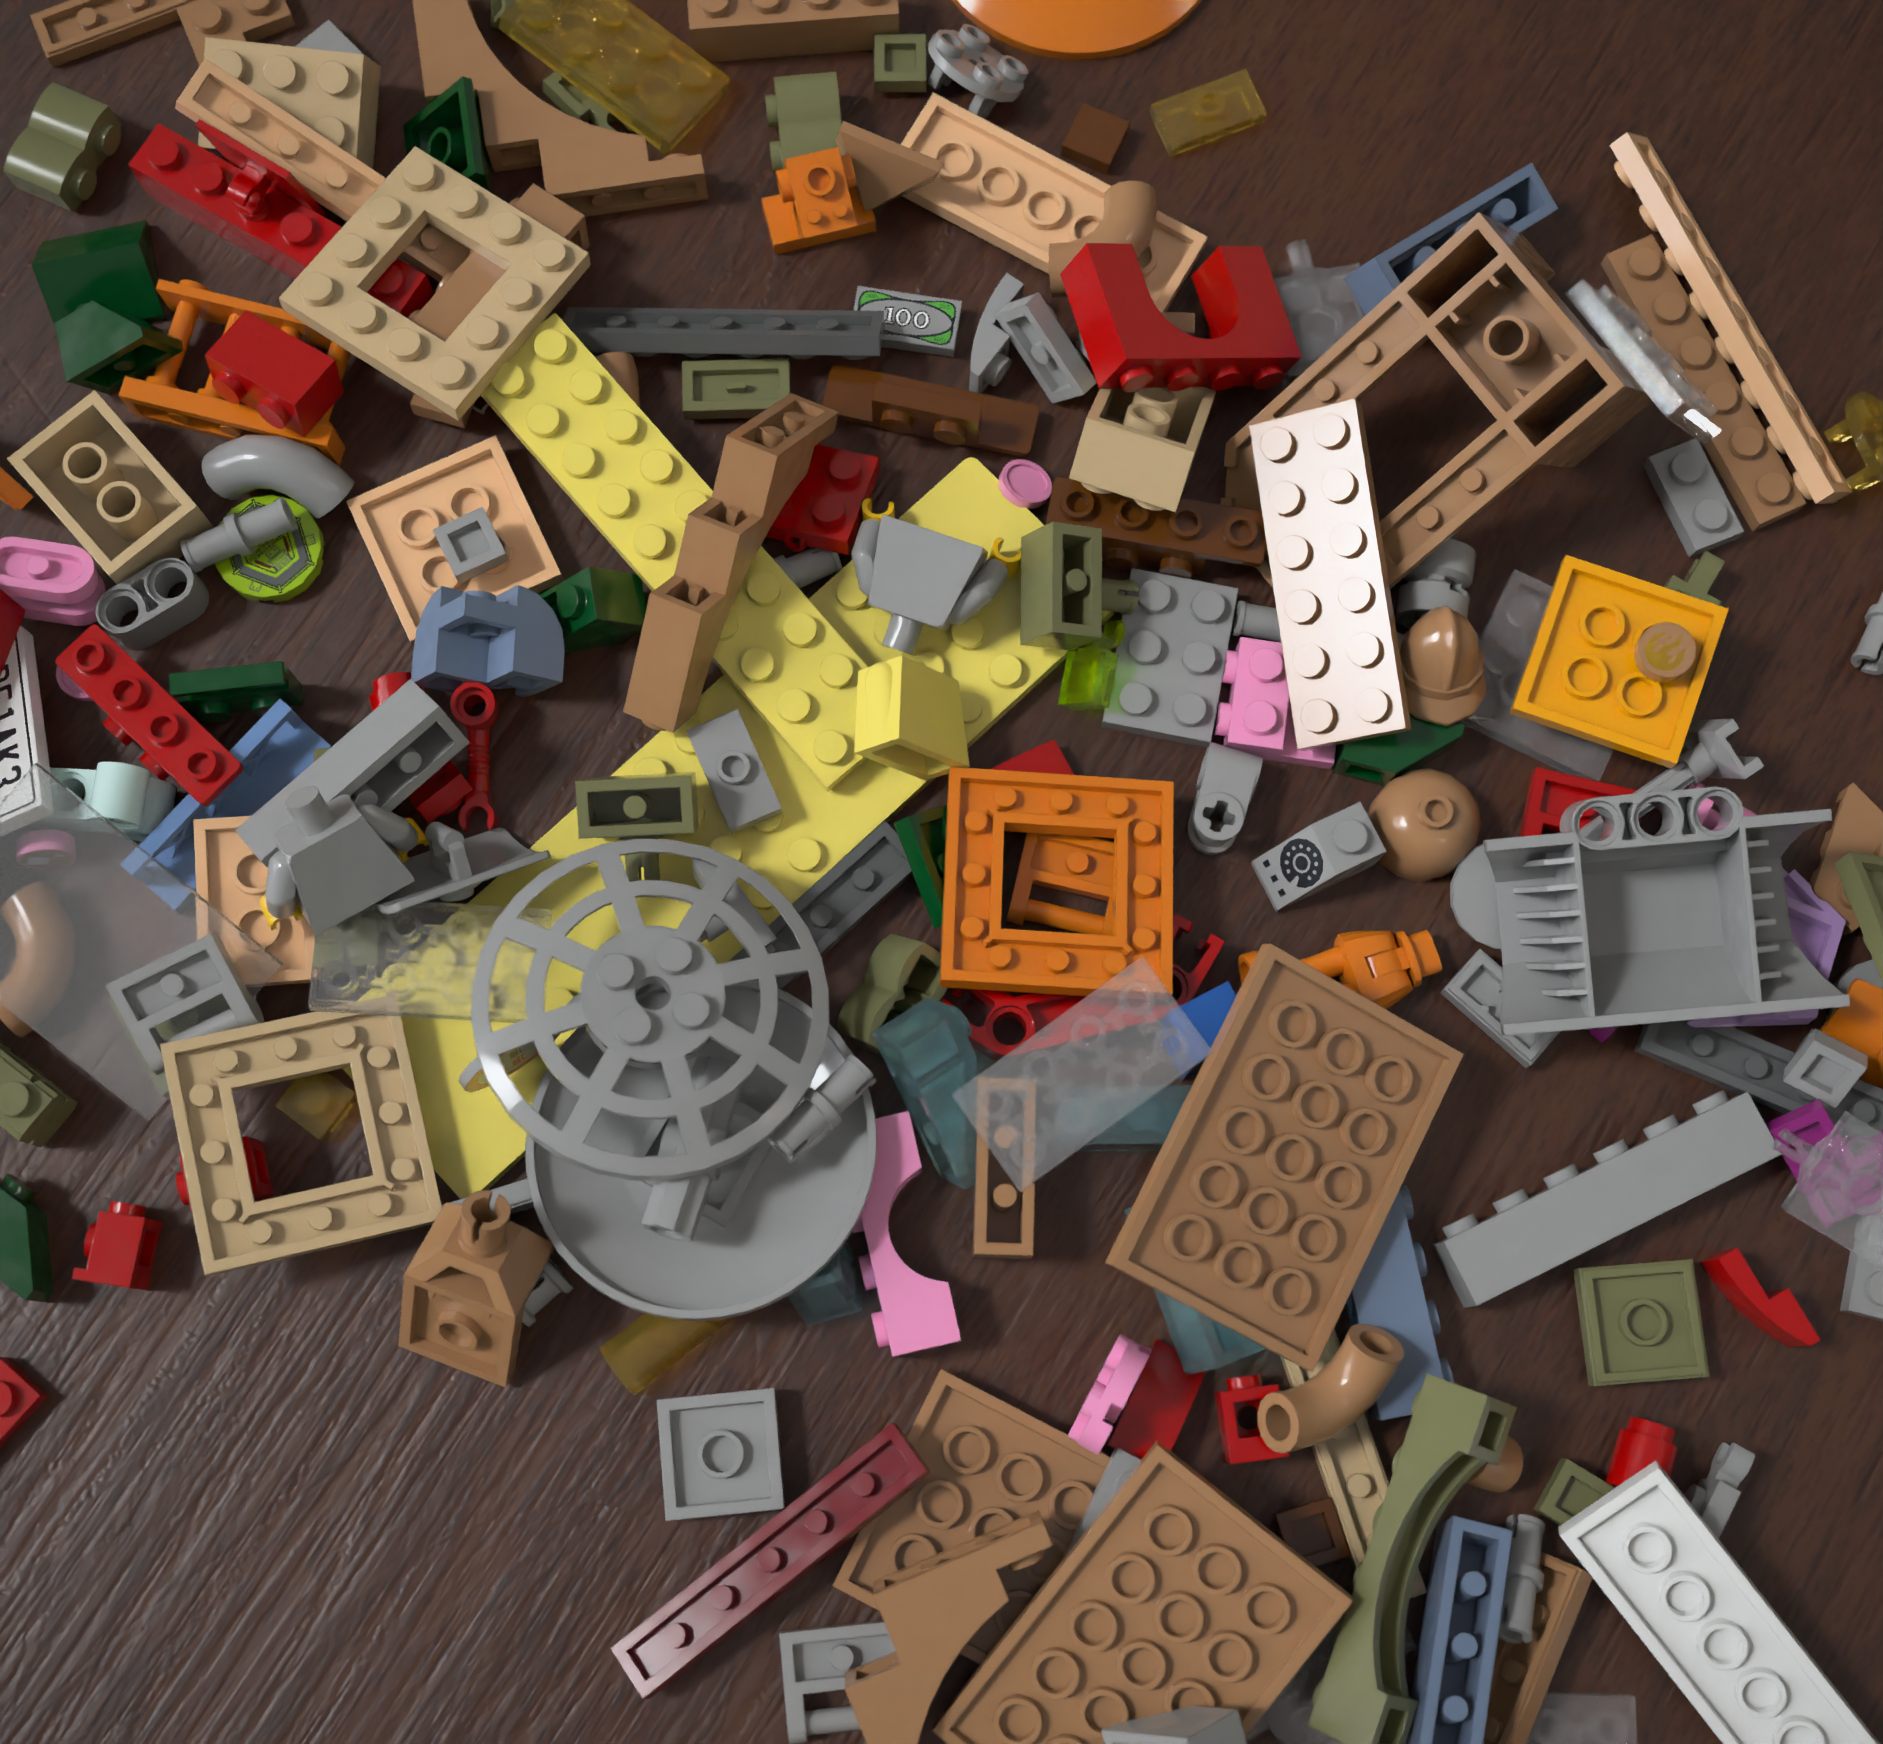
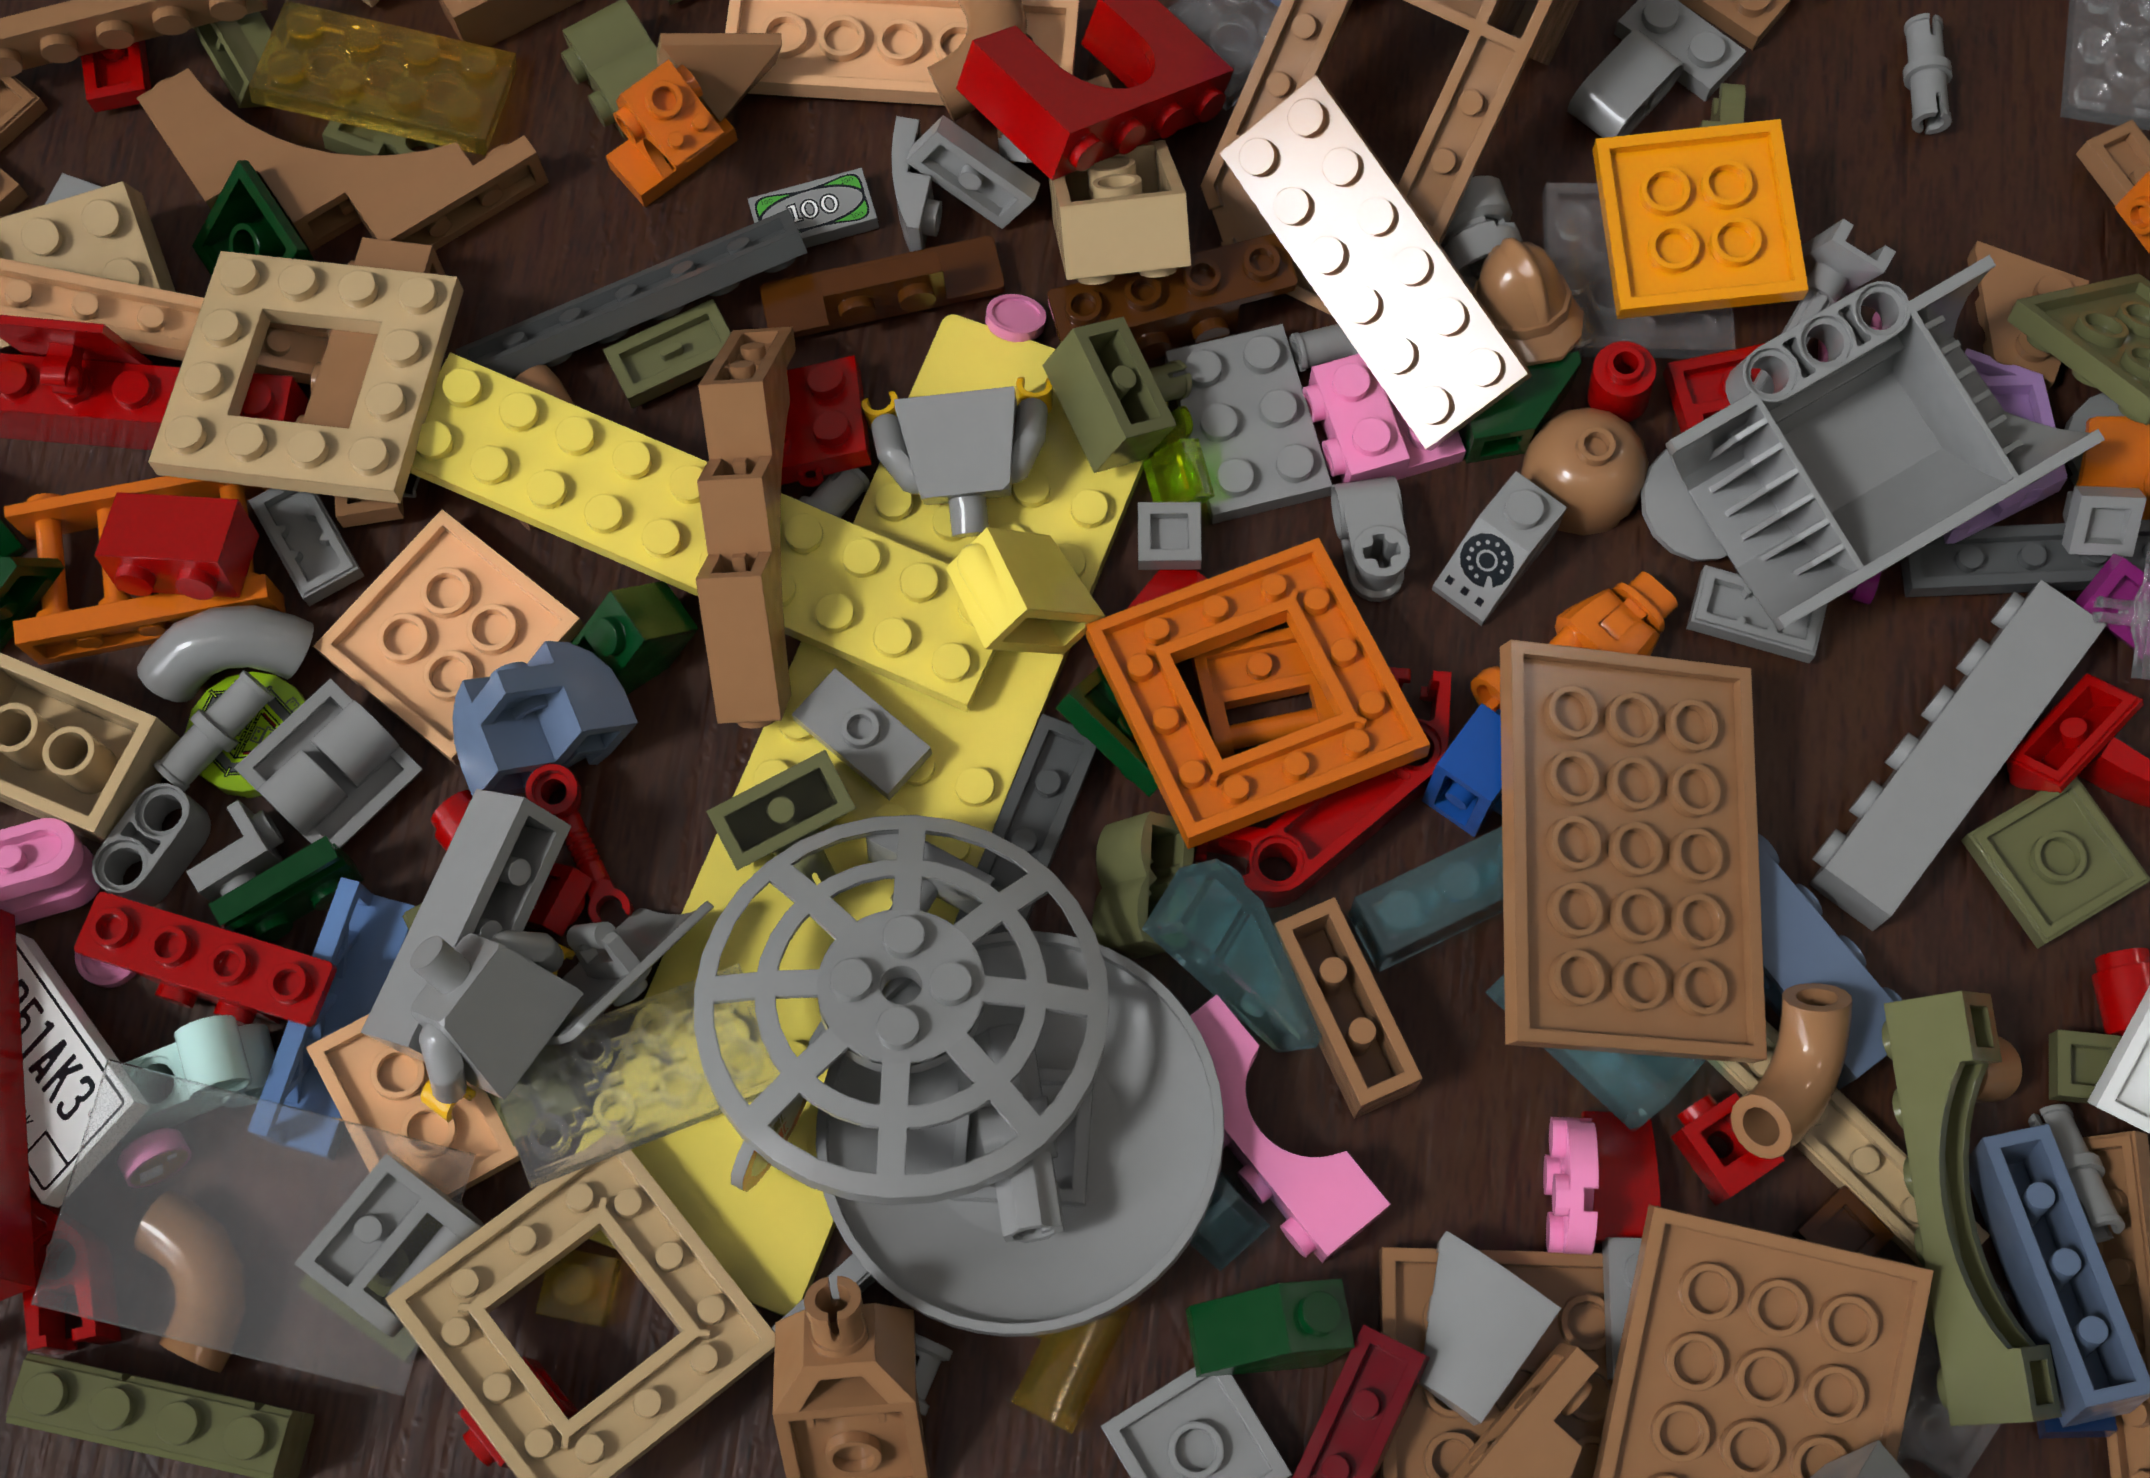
camera: 20 degrees left, 5 degrees down
(216, 648) = (242, 858): none -> light grey bracket
(312, 605) = (329, 767): none -> light grey plate
(380, 417) = (306, 542): none -> light grey plate
(470, 545) = (471, 628): light grey plate -> none
(820, 1390) = (1271, 1329): none -> dark green slope
(822, 1108) = (1131, 1028): light grey pin -> none
(980, 1468) = (1478, 1328): none -> light grey slope
(1056, 723) = (1169, 535): none -> light grey tile
(1082, 1074) = (1383, 864): clear tile -> none
(1489, 765) = (1622, 380): none -> red brick
(1625, 517) = (1625, 86): none -> light grey beam
(1664, 652) = (1742, 186): medium nougat tile -> none
(1706, 1229) = (2071, 735): none -> red slope

